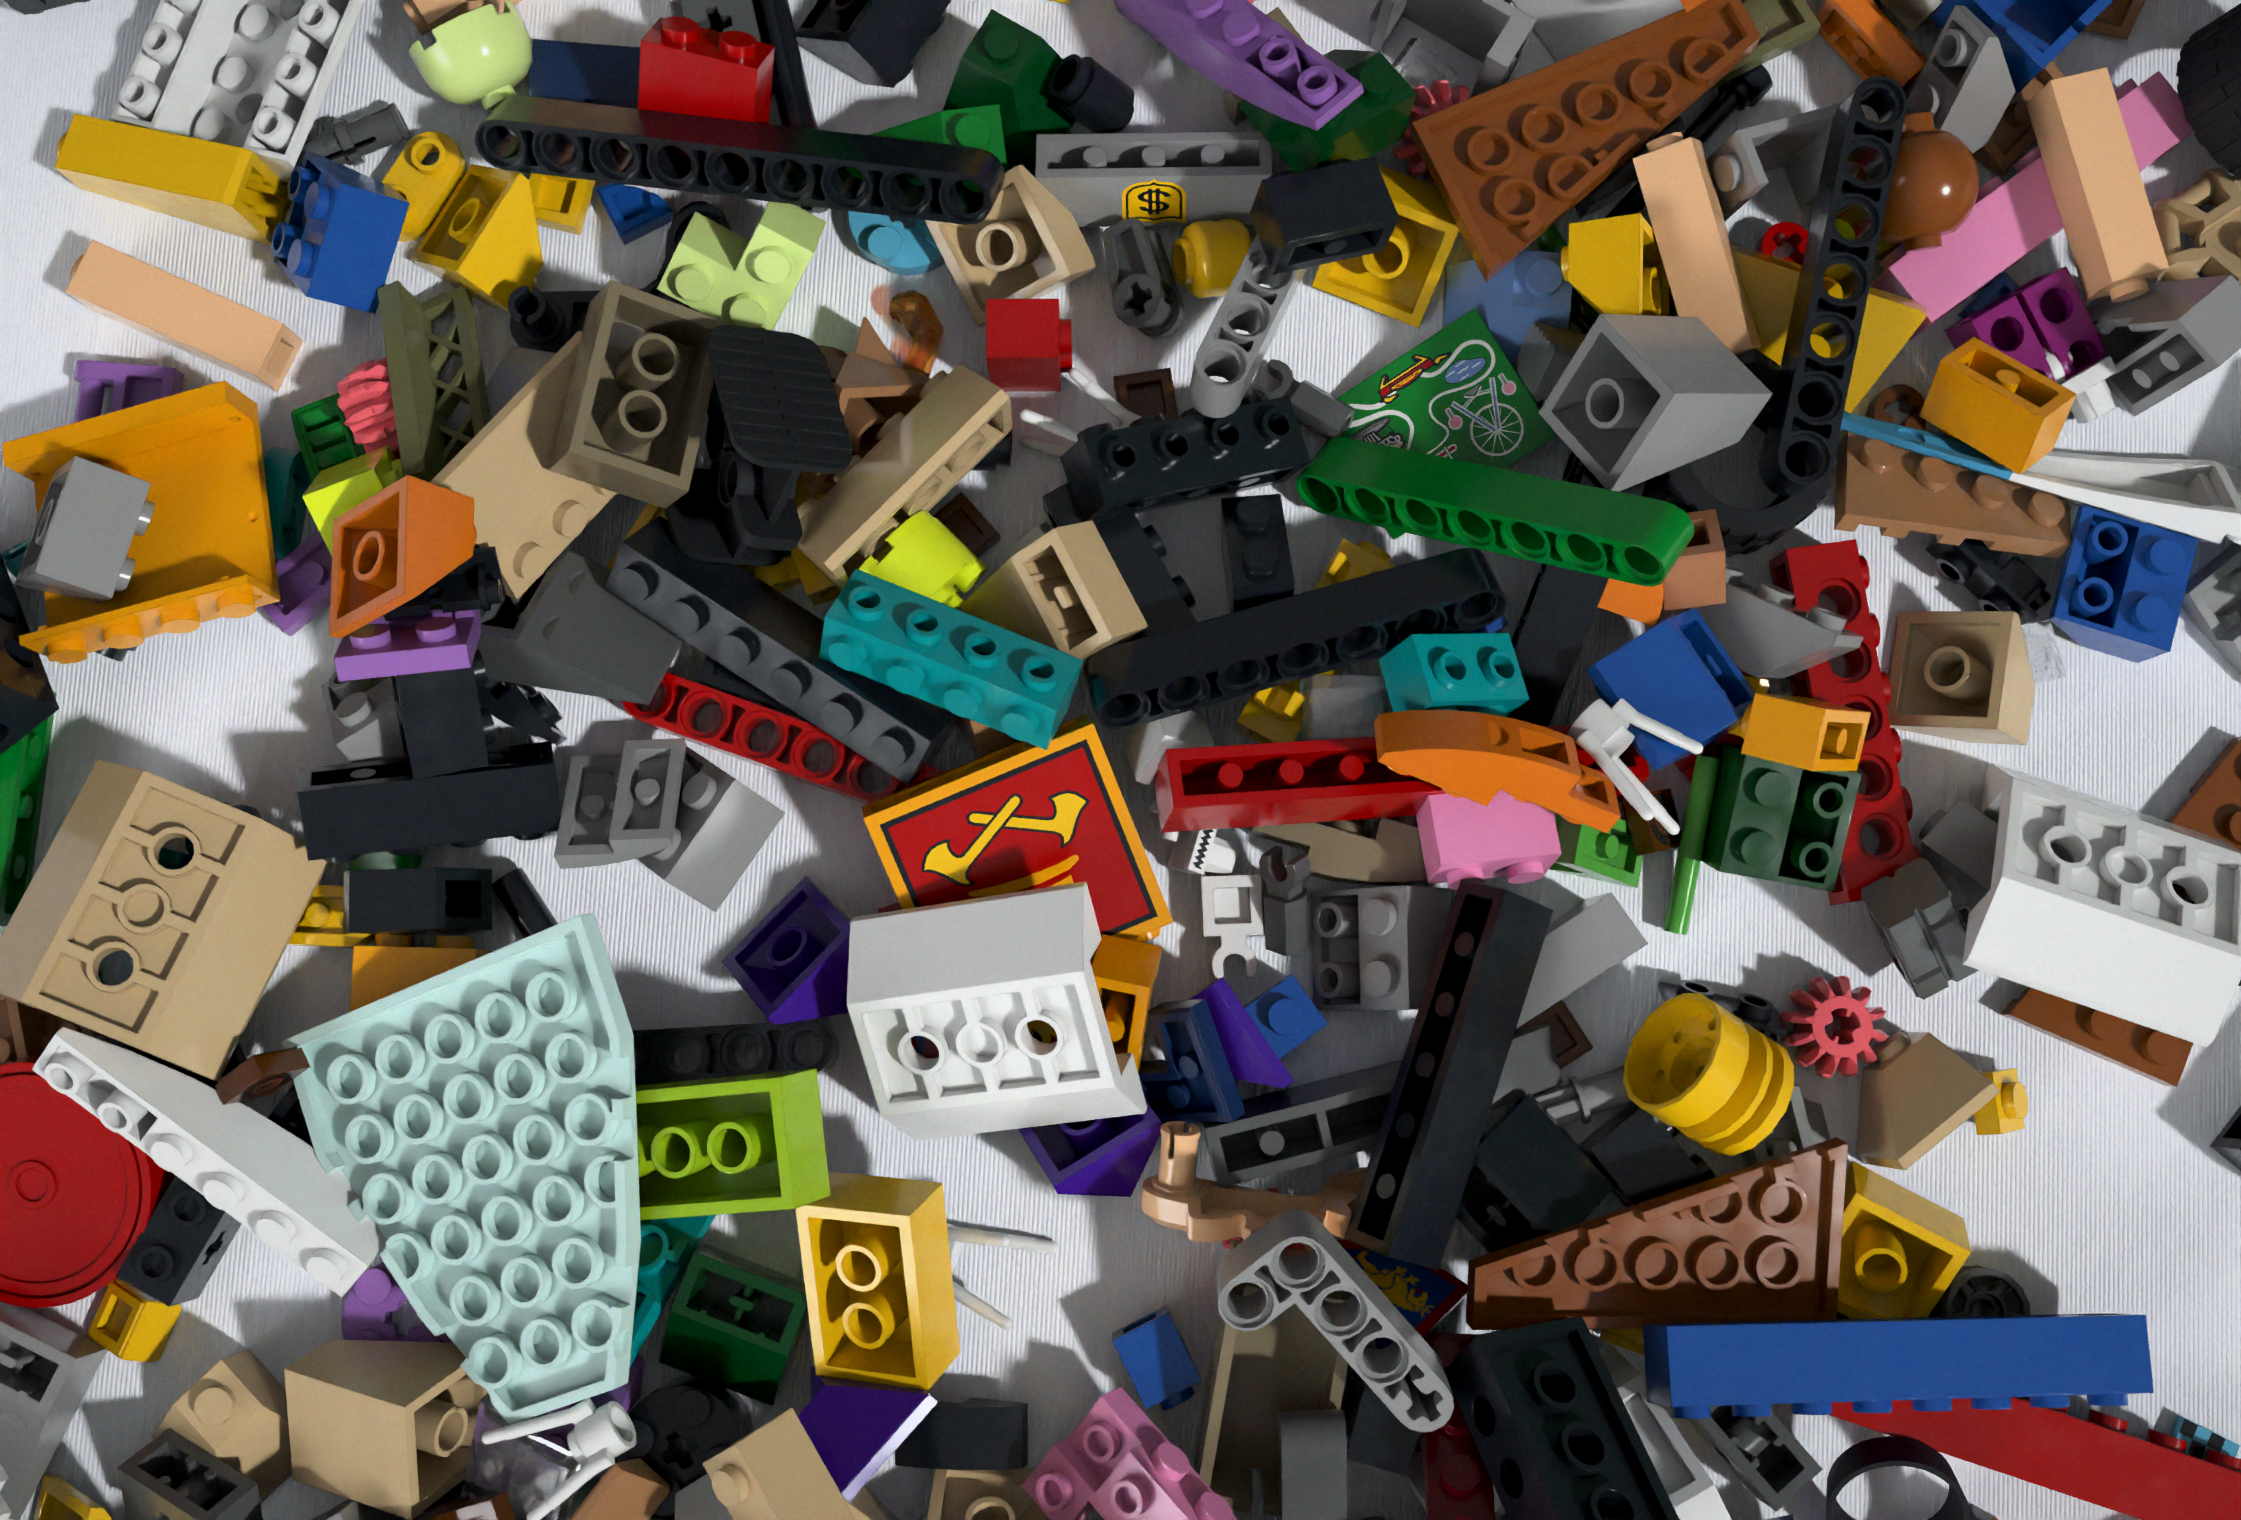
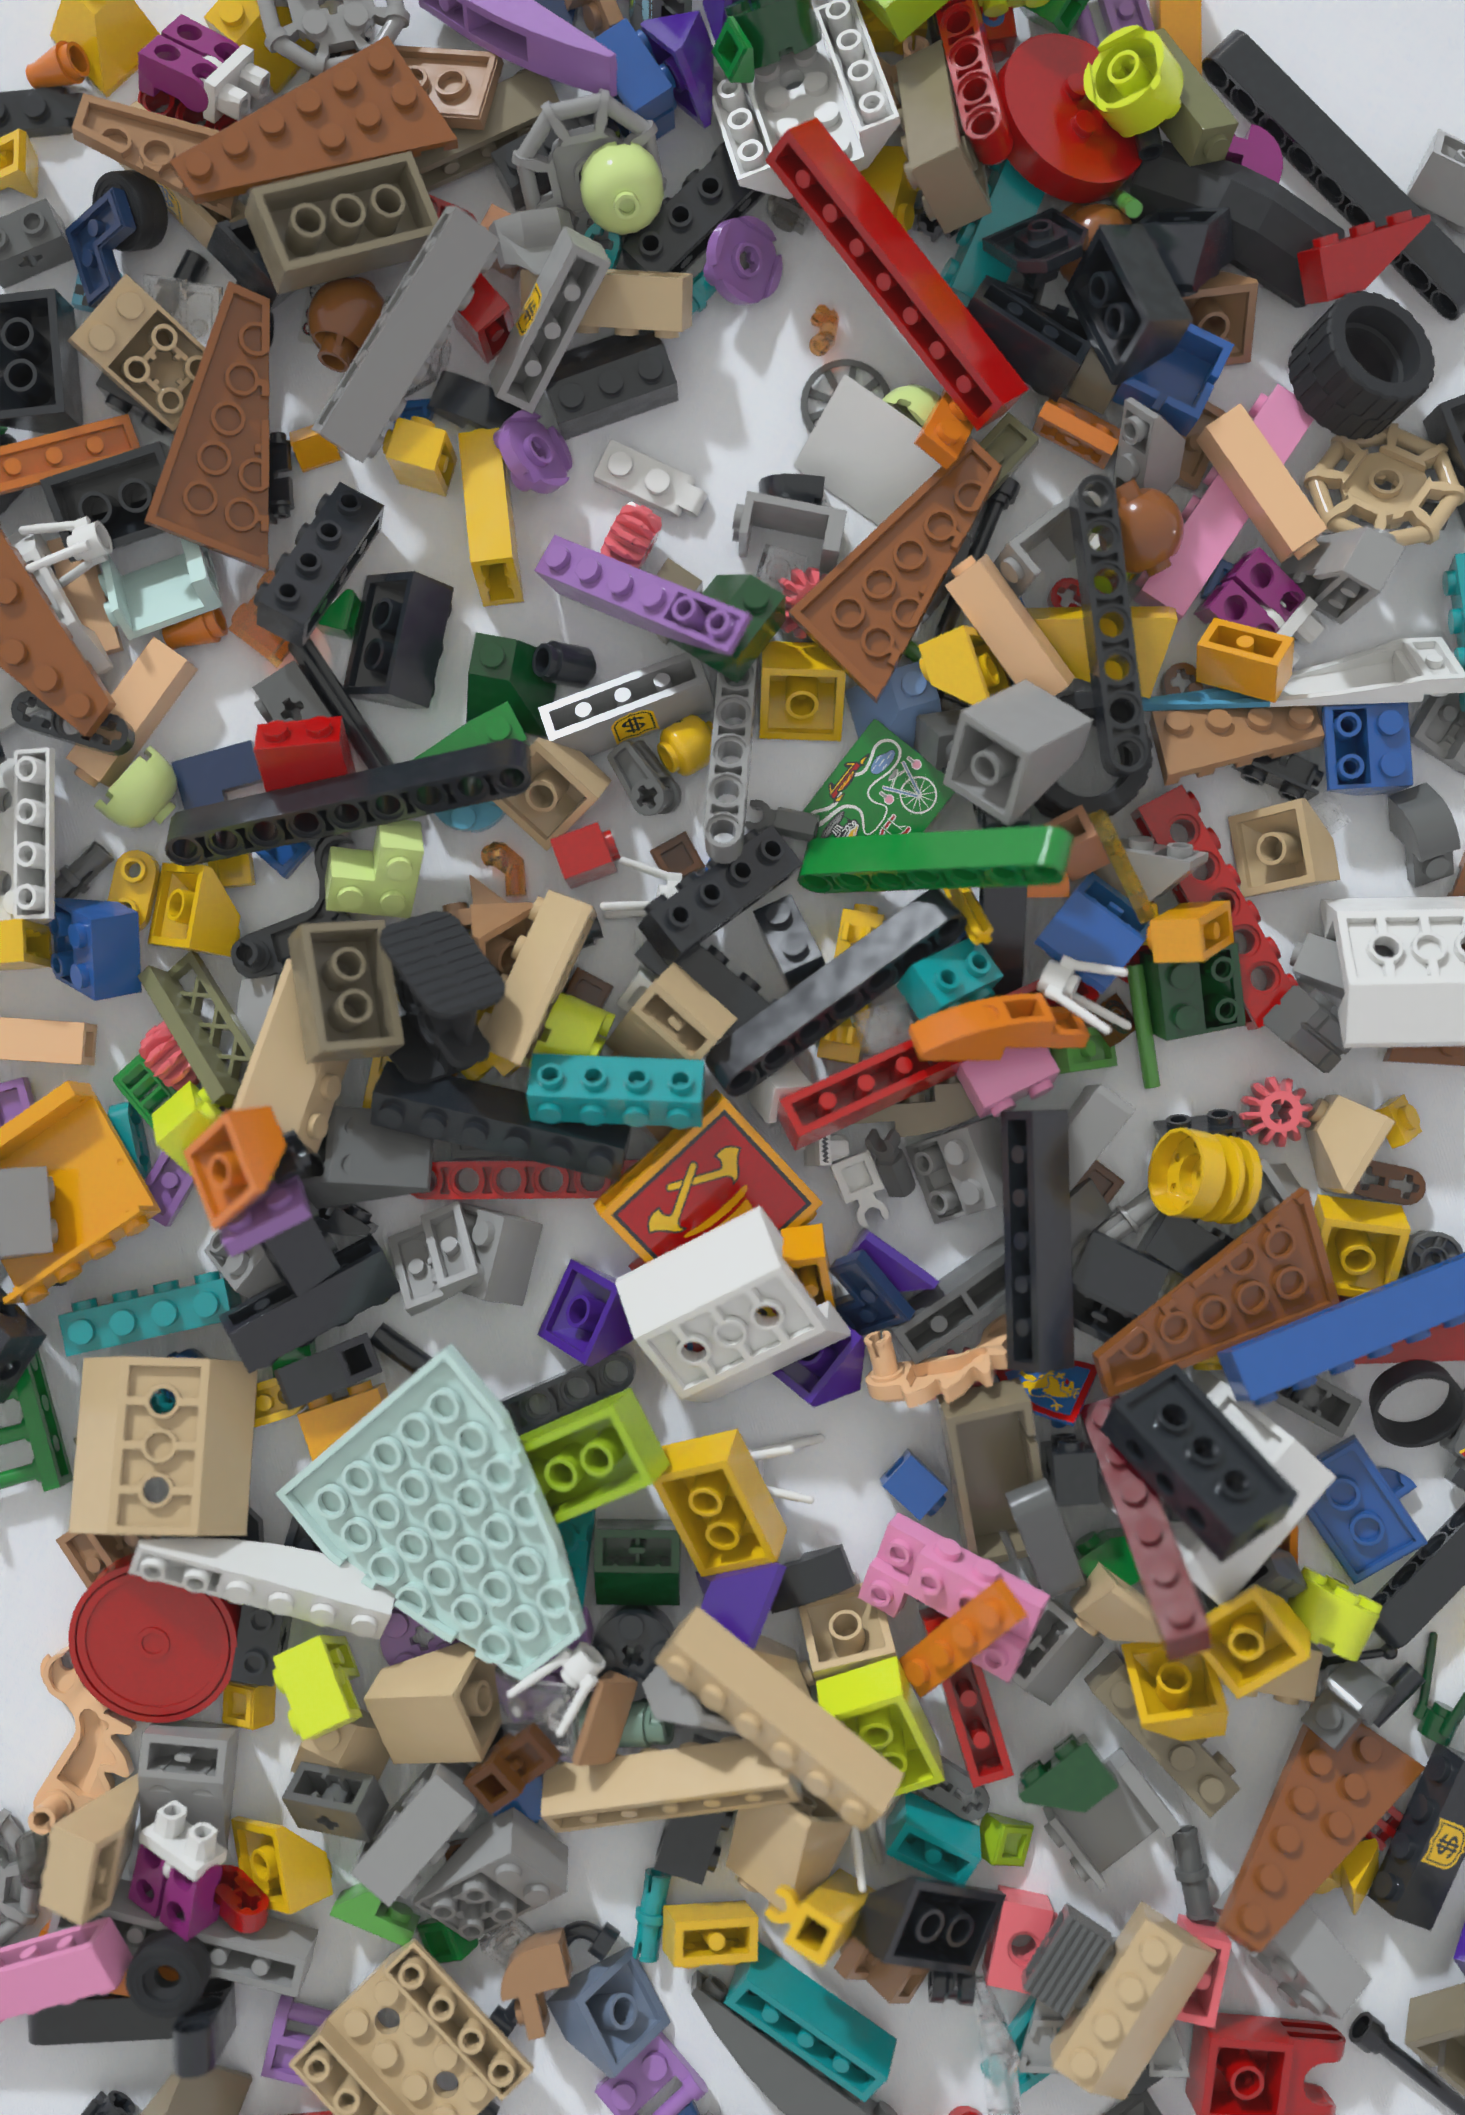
camera: 15 degrees left, 5 degrees up
(206, 739) = (146, 1316): none -> teal brick
(230, 1326) = (318, 1685): none -> neon yellow brick
(262, 1075) = (273, 1520): reddish brown tile -> none
(1285, 1015) = (916, 1237): blue brick -> none
(1323, 214) = (752, 701): black brick -> none
(1345, 1324) = (1027, 1427): light grey beam -> none
(1519, 618) = (978, 925): none -> yellow axle
(1743, 625) = (1122, 866): none -> clear yellow tile
(1942, 1190) = (1387, 1194): none -> reddish brown beam
(2167, 725) = (1427, 830): none -> dark grey brick

